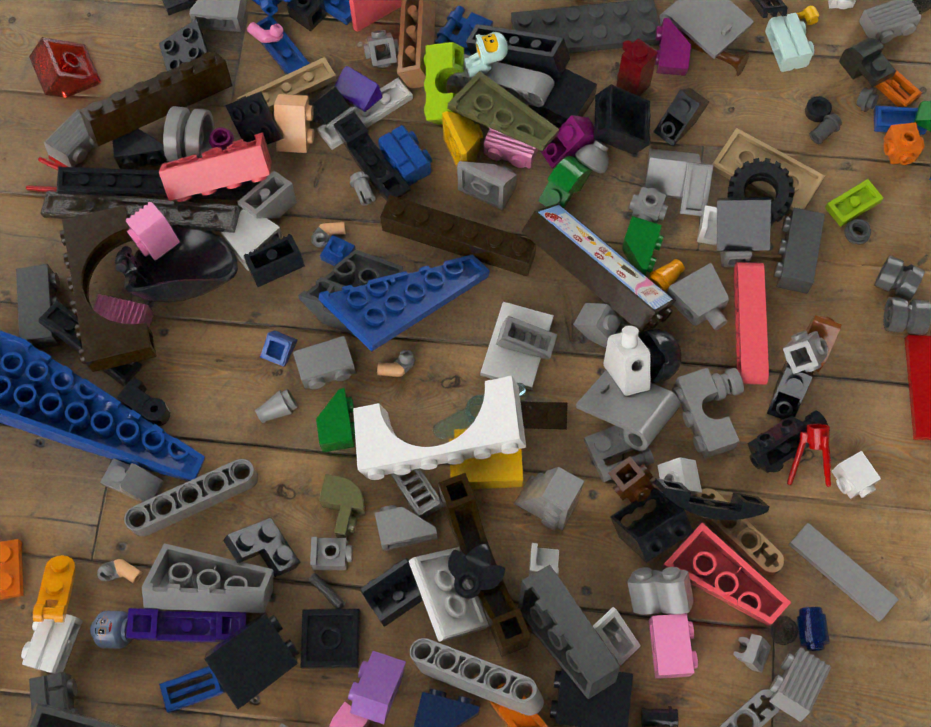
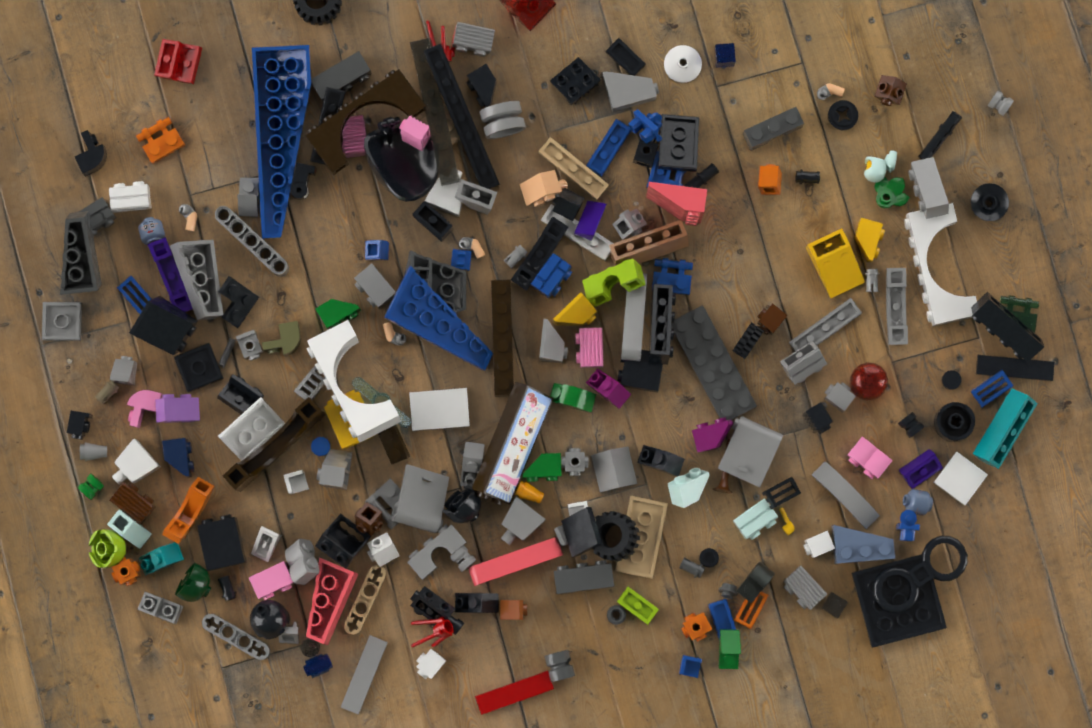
camera: 70 degrees right, 15 degrees up
(55, 590) = (160, 185): light orange plate -> none
(153, 98) = (522, 84): dark brown brick -> none
(217, 169) = (480, 155): coral wedge -> none
(221, 138) = (508, 139): magenta cone -> none
(253, 117) = (531, 159): black hinge -> none
(274, 34) = (609, 135): bright pink arm -> none
(278, 405) = (334, 268): light grey cone -> none
(402, 528) = (283, 382): light grey slope -> none
(476, 567) = (273, 440): black plate -> none
(484, 684) = (204, 474): light grey beam -> none
(489, 50) = (642, 303): light aqua piece -> none
(499, 110) = (603, 330): olive wing -> none
(506, 512) = (320, 446): none -> blue tile
(515, 344) = (443, 397): light grey slope -> none
(566, 632) = (251, 512): dark grey wedge -> none
(594, 156) = (599, 409): light grey brick -> none
(622, 119) = (636, 419): black piece -> none
(628, 361) = (450, 484): white torso -> none
(636, 67) = (679, 414): dark red brick -> none
(696, 188) = (602, 490): light grey tile -> none
(727, 95) = (688, 488): none -> light aqua slope
(728, 670) = (269, 619): none -> black cylinder
(740, 506) = (367, 576): black slope -> none
(799, 683) = (278, 666): light grey brick -> none
(805, 351) = (494, 601): light grey brick -> none
(899, 278) = (587, 652): dark grey wheel -> none

